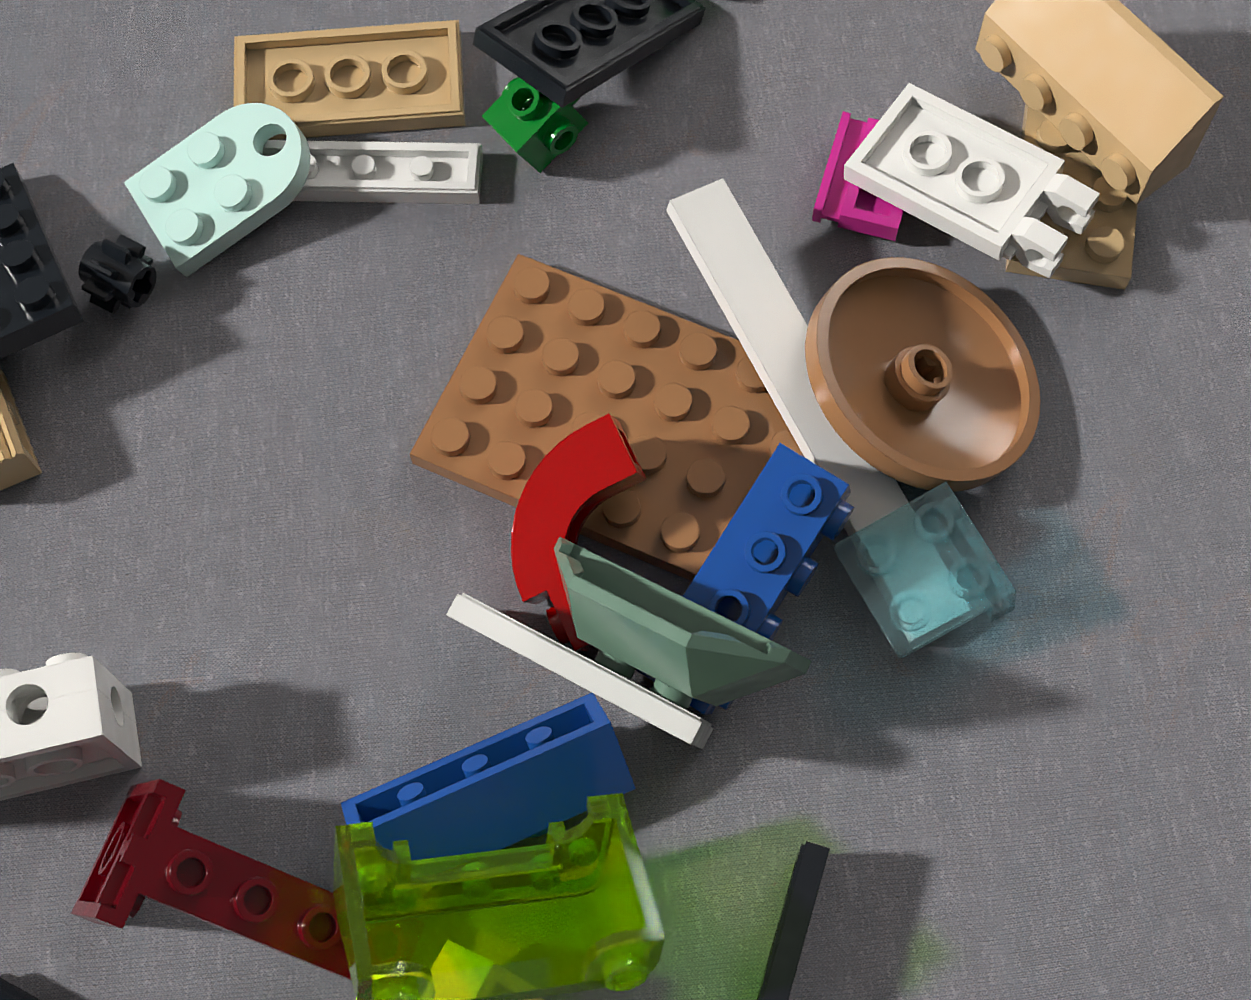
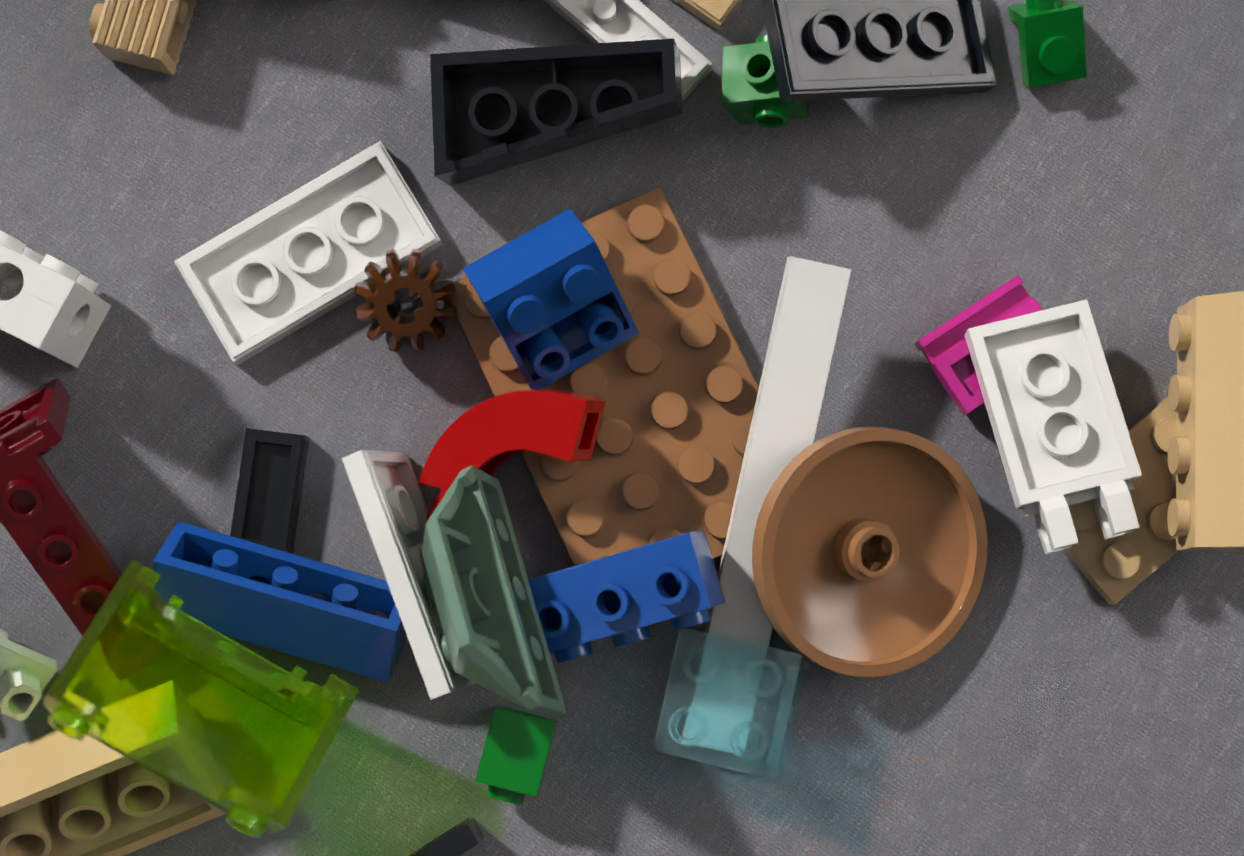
camera: 40 degrees right, 15 degrees up
(271, 520) = (305, 252): none -> white tile
(365, 480) = (383, 293): none -> reddish brown gear
(377, 247) = (542, 100): none -> black wedge
(393, 720) = (270, 488): none -> black tile
(508, 380) = (552, 299): none -> blue slope
(791, 759) = (515, 754): none -> green brick

